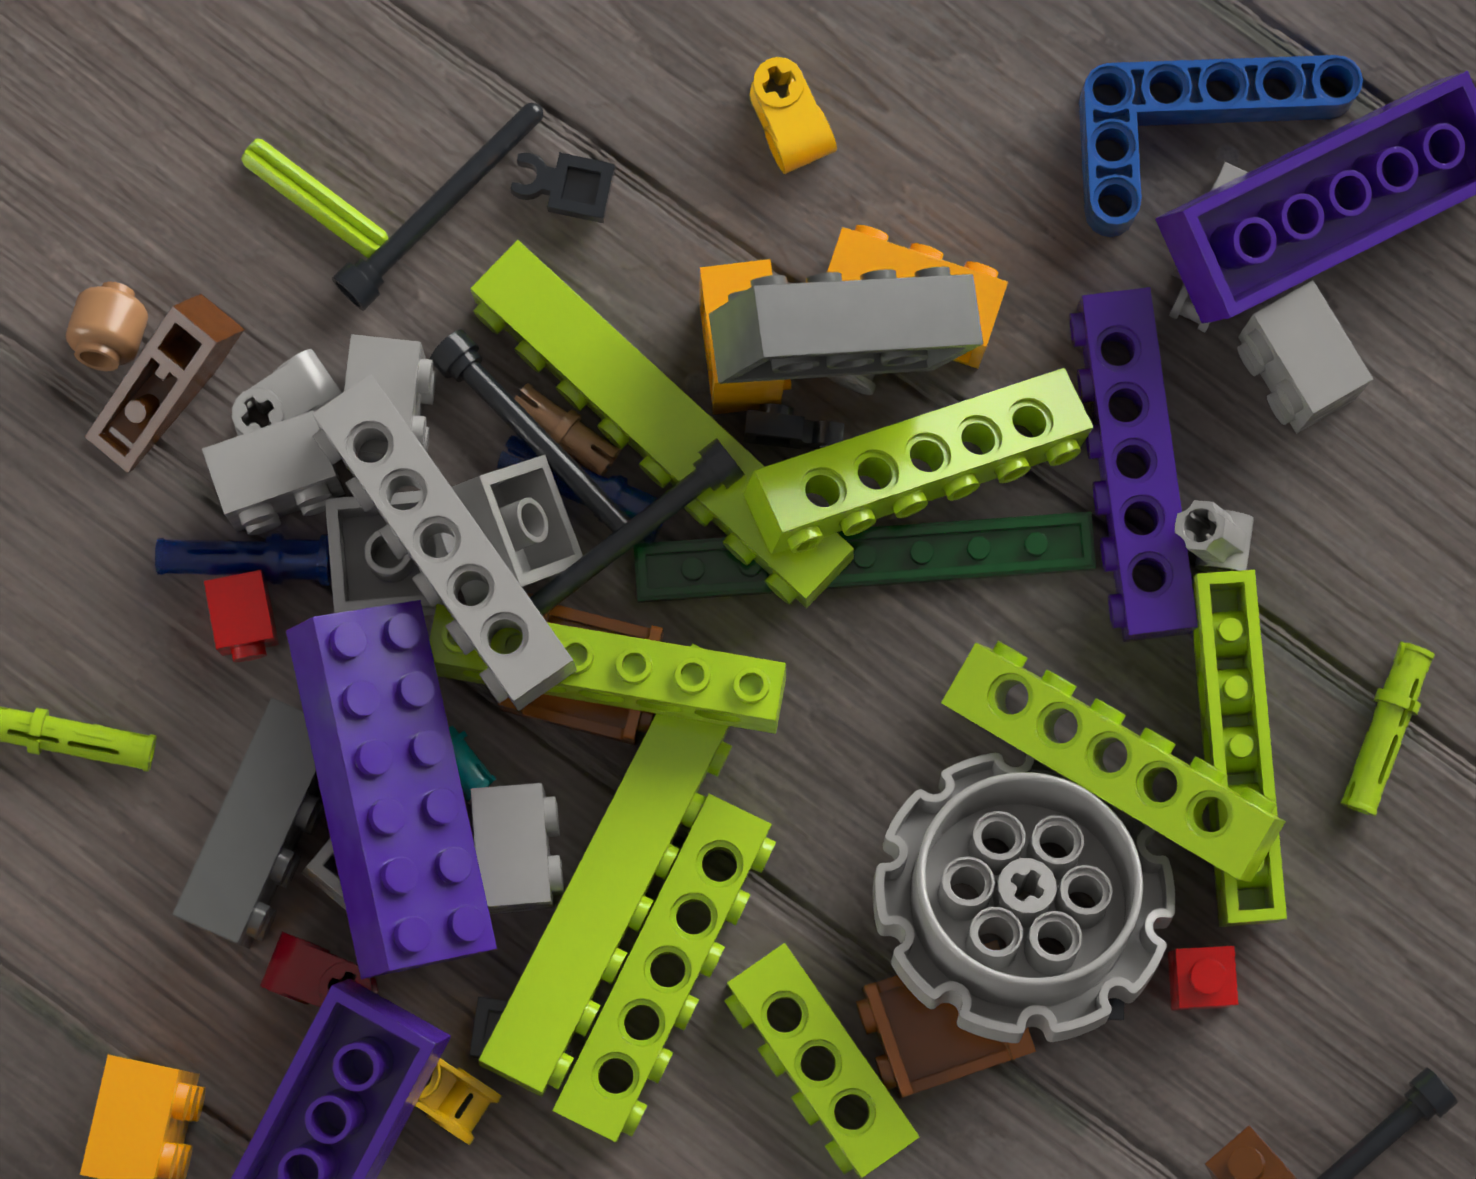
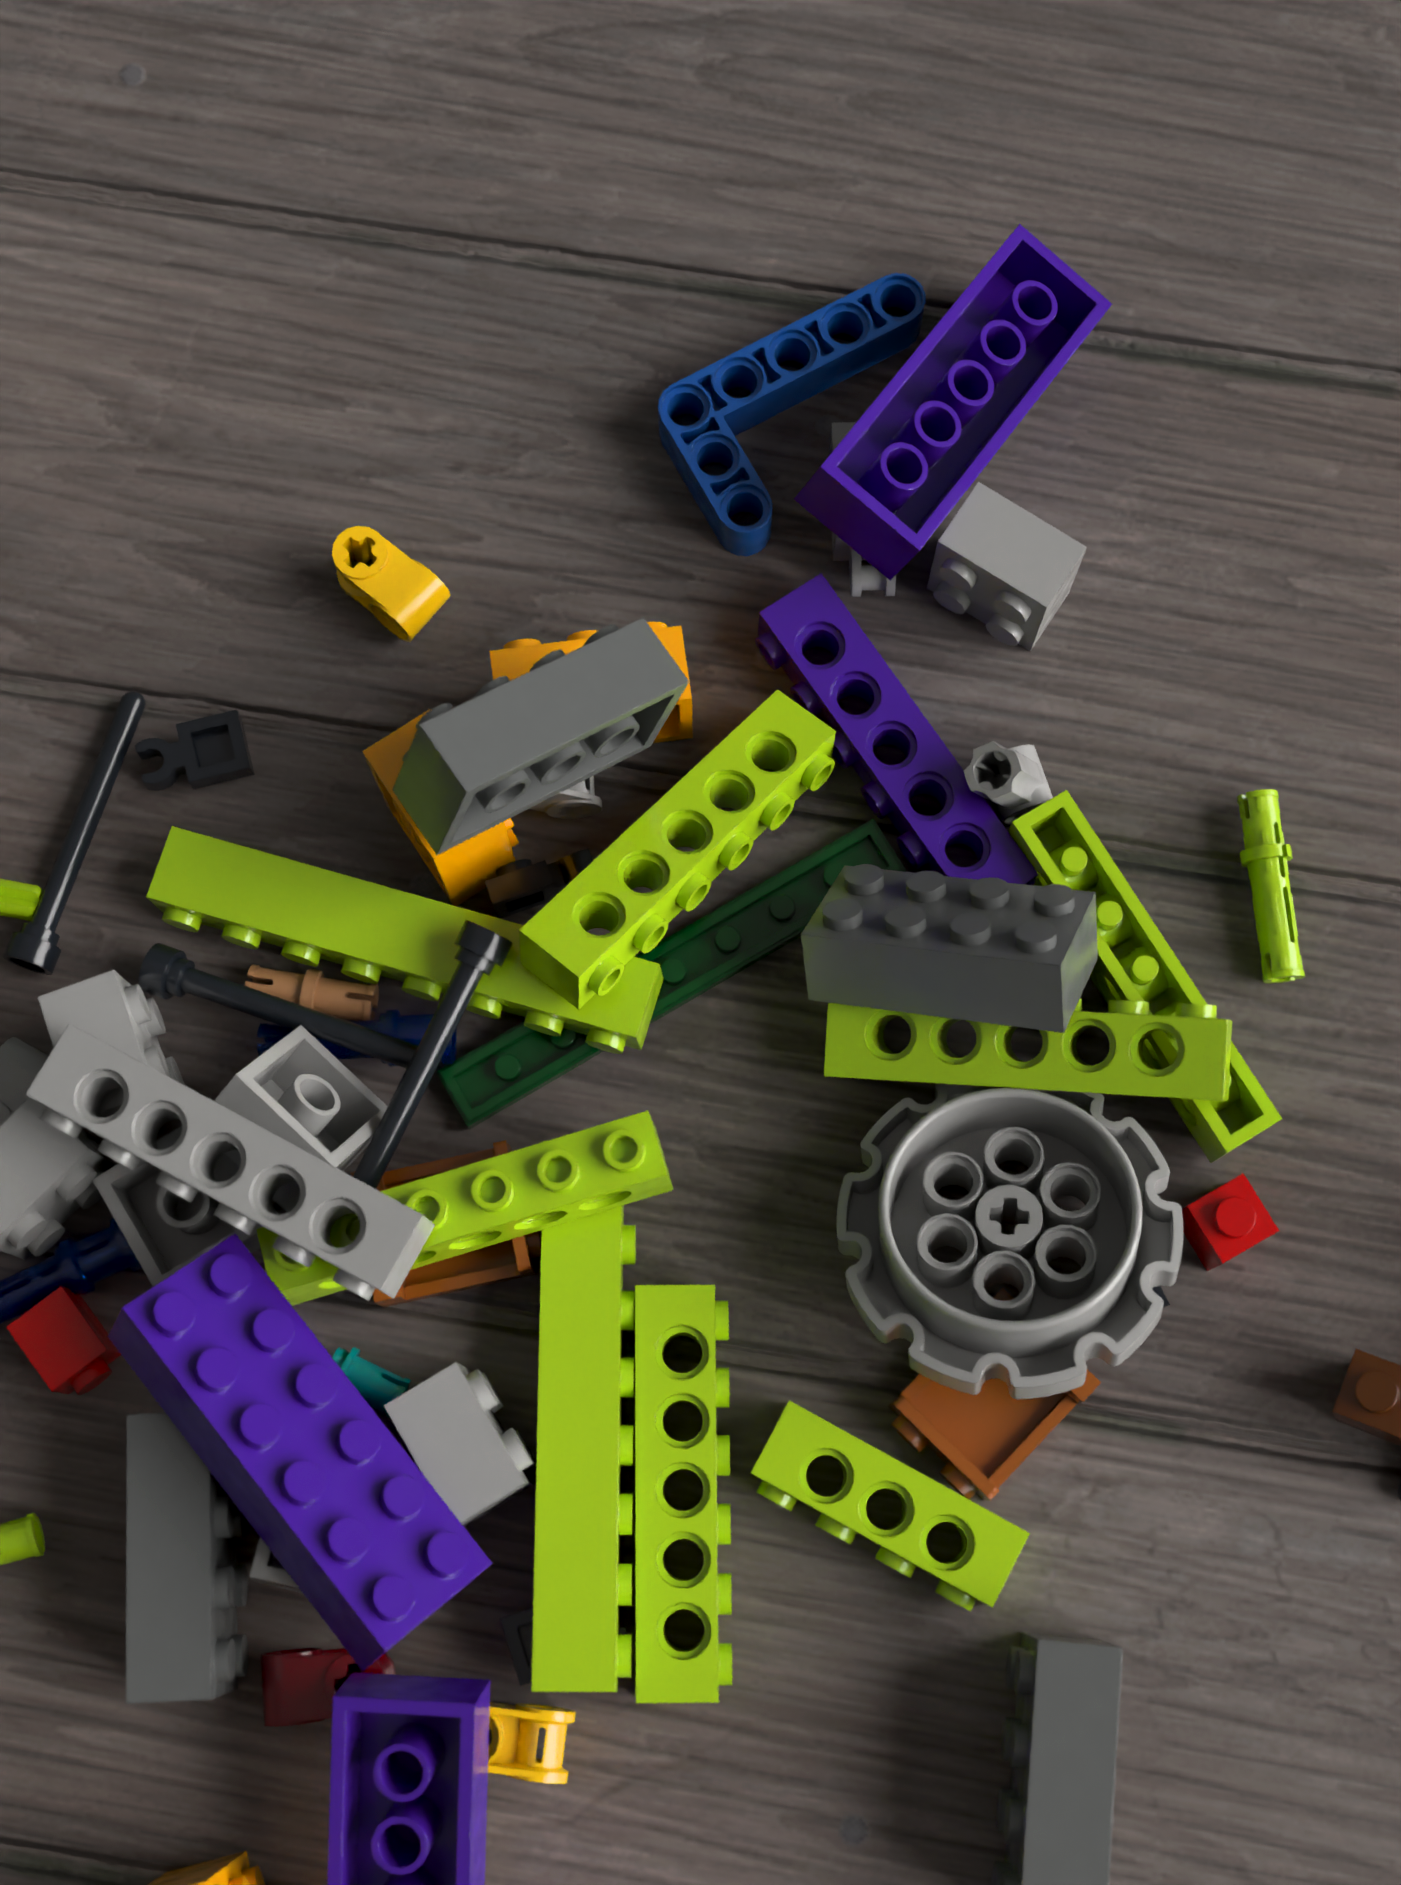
camera: 20 degrees left, 5 degrees down
(1093, 651) = (952, 947): none -> dark grey brick

